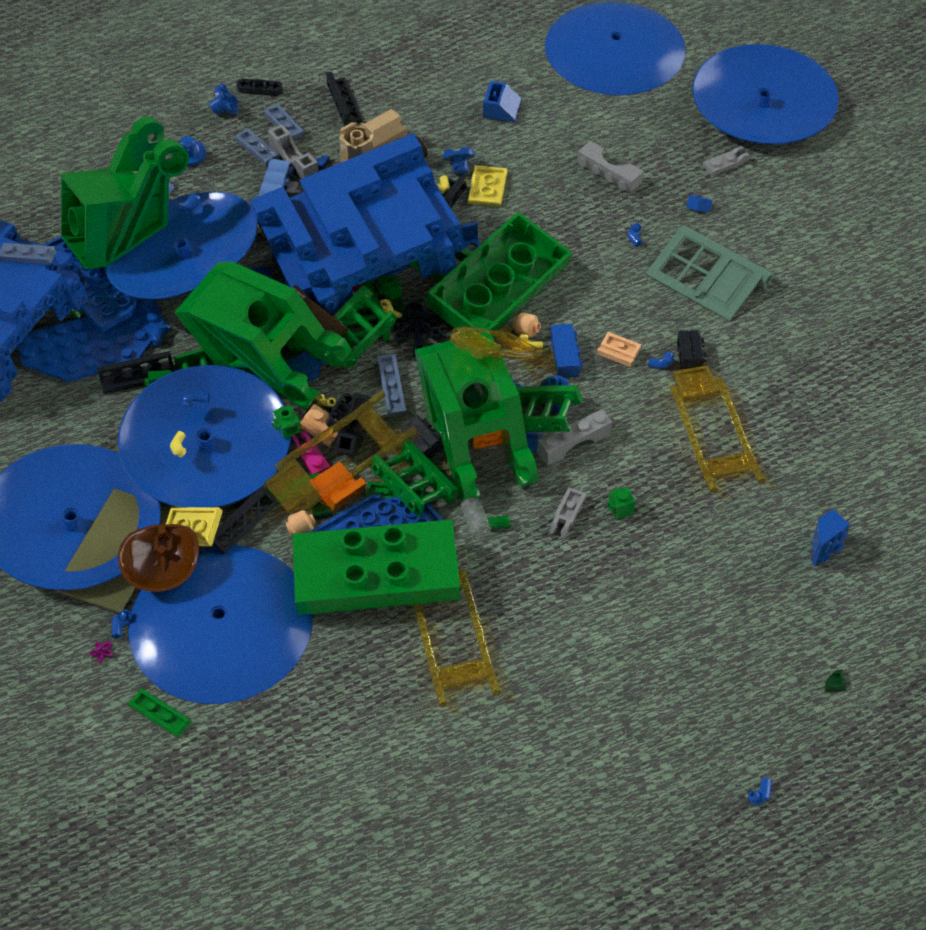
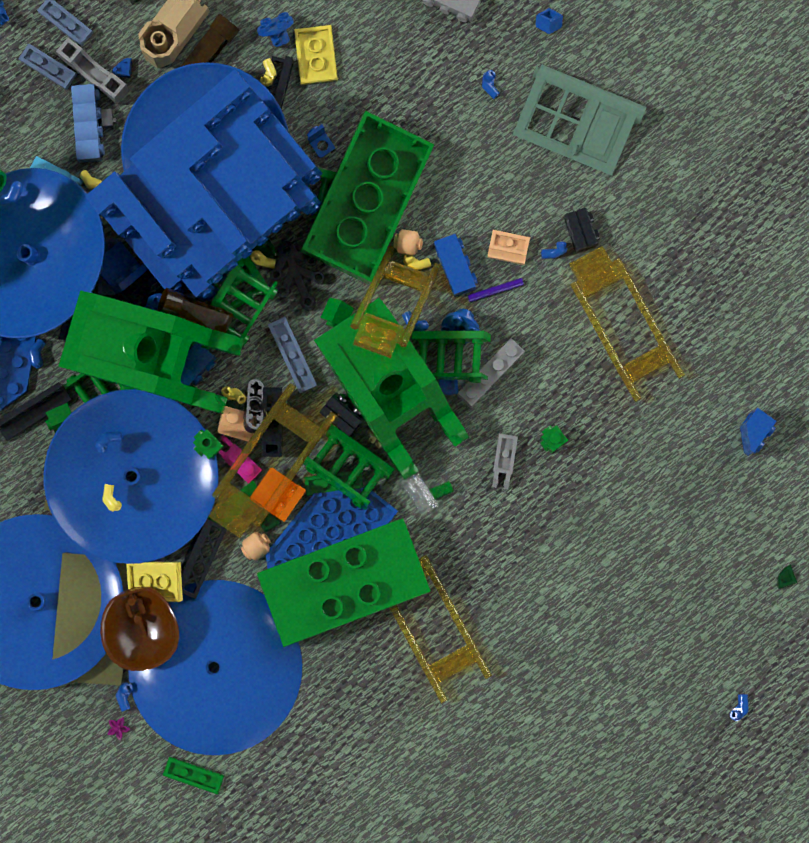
camera: 15 degrees left, 30 degrees up
(598, 379) = (495, 290): none -> dark purple bar

